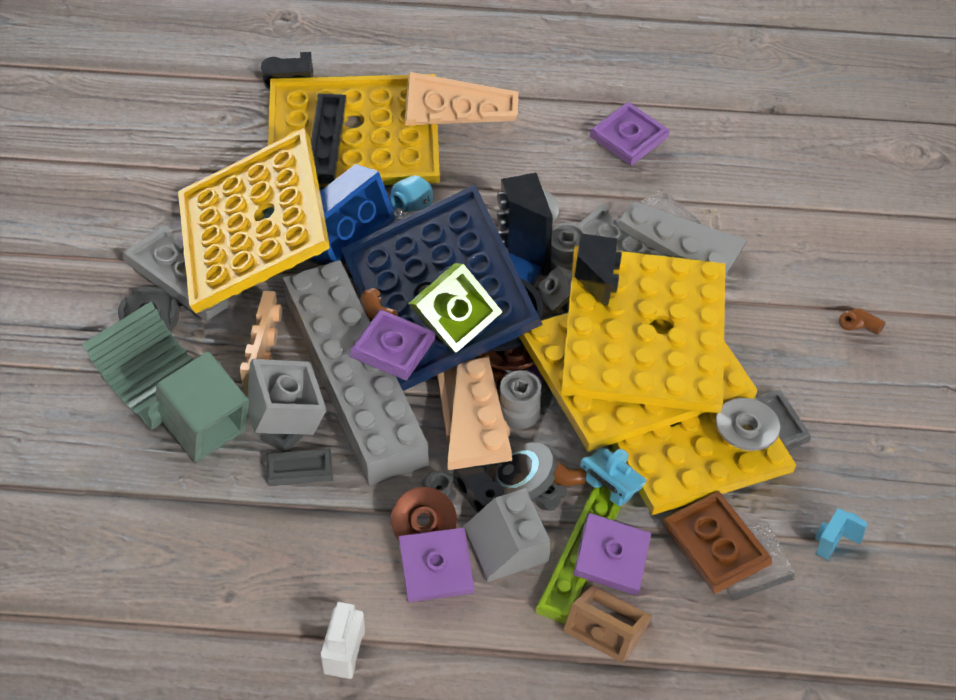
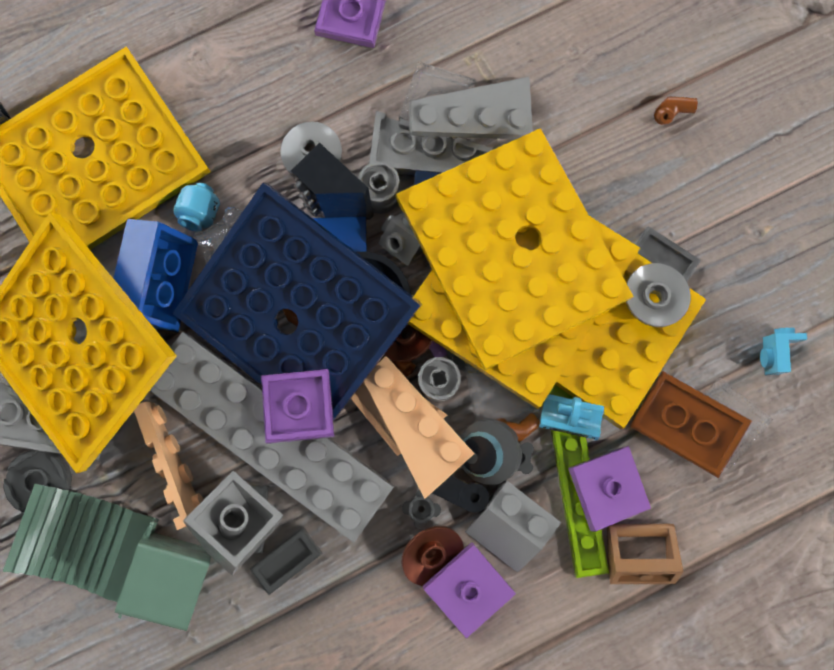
camera: 30 degrees left, 30 degrees up
(327, 135) = (71, 187): black tile -> none
(371, 303) = (253, 371): dark orange arm -> none
(453, 101) = (166, 73): light nougat wing -> none
(455, 307) = (331, 336): lime slope -> none
(596, 265) = (439, 215): black slope -> none

